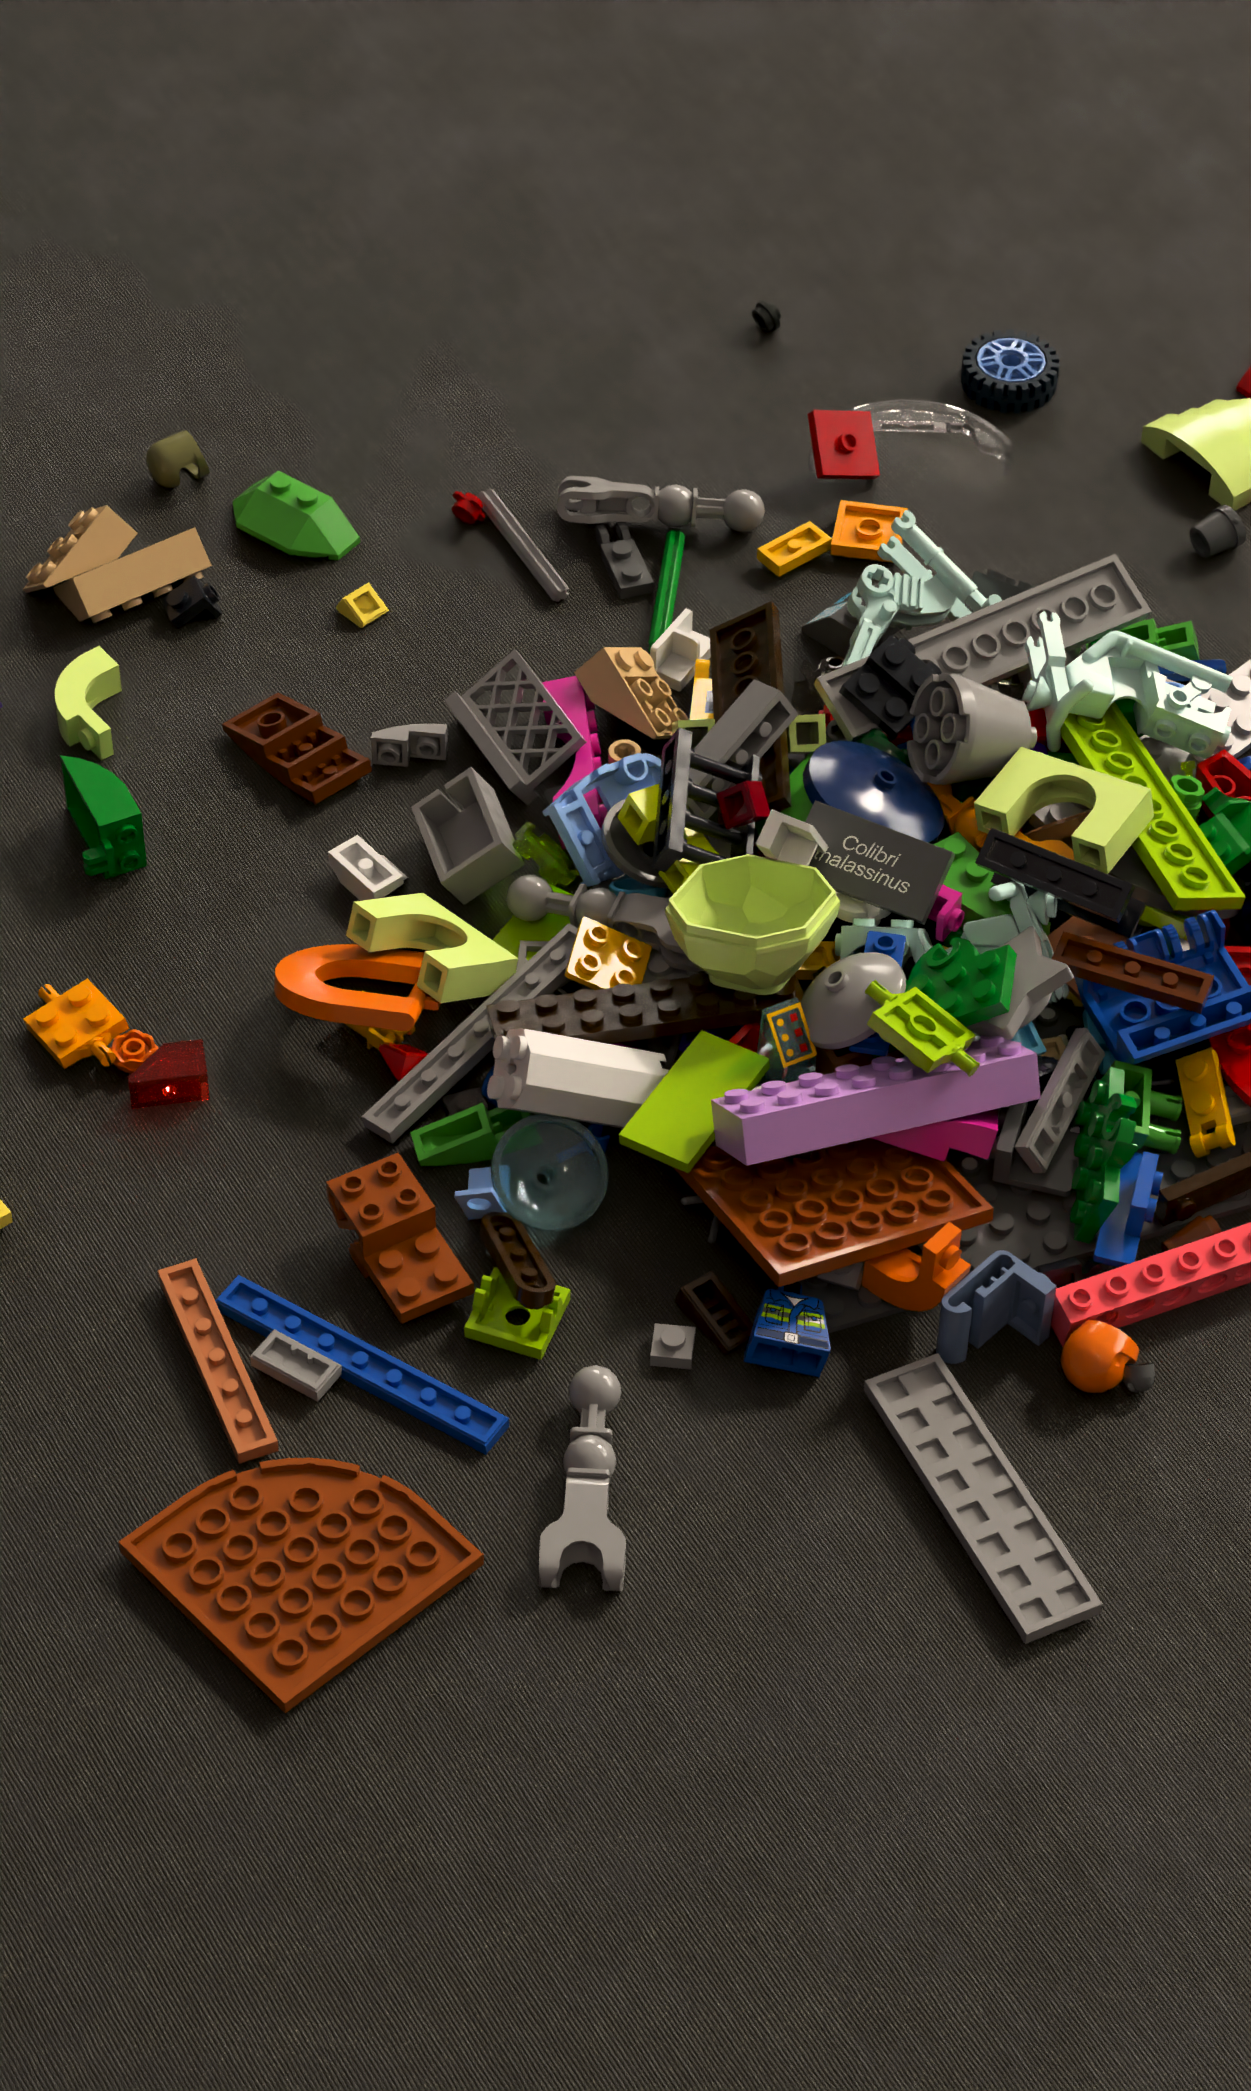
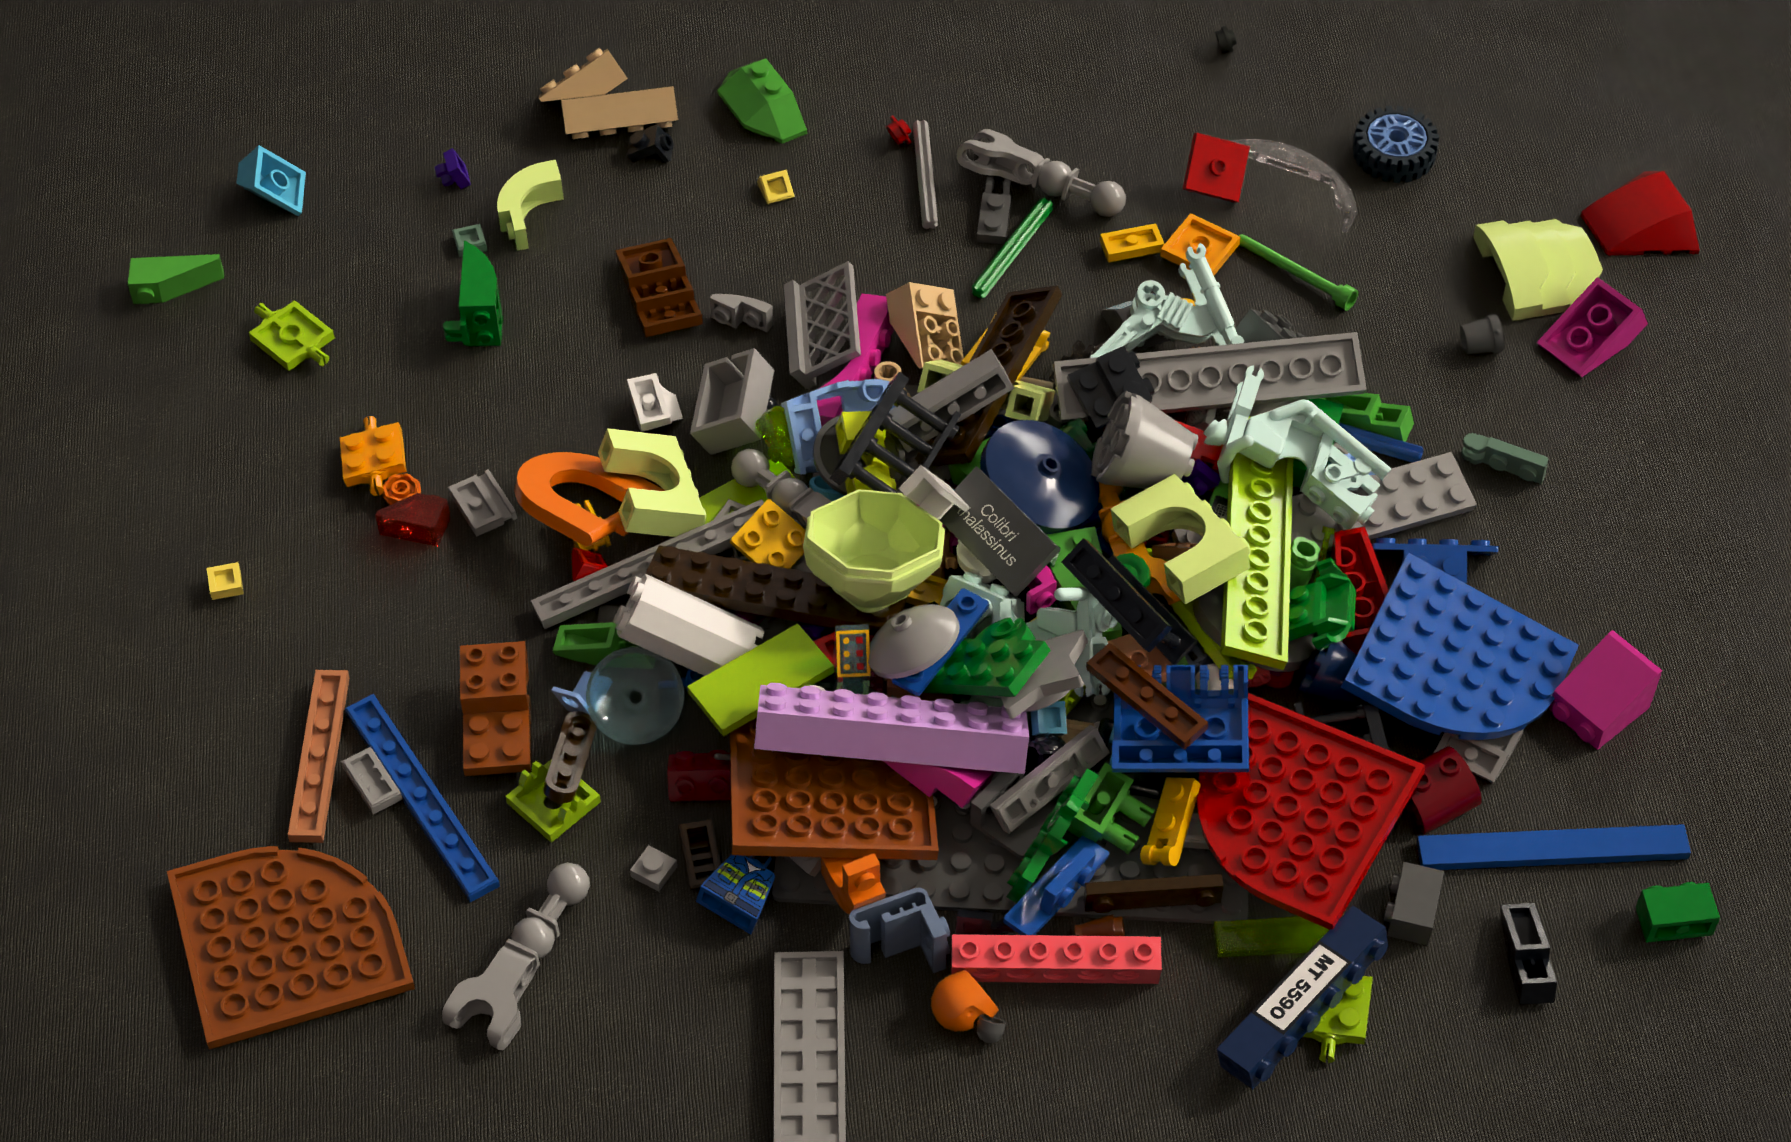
camera: 25 degrees right, 5 degrees up
(39, 765) = (472, 234): none -> sand green tile
(173, 453) = (697, 21): olive helmet -> none
(237, 1034) = (482, 502): none -> light grey plate
(668, 1233) = (698, 777): none -> dark red bracket
(677, 651) = (984, 299): white panel -> none
(743, 804) = (923, 450): dark red slope -> none
(921, 1029) = (940, 686): lime plate -> none
(1047, 536) = (1344, 296): none -> bright green piece

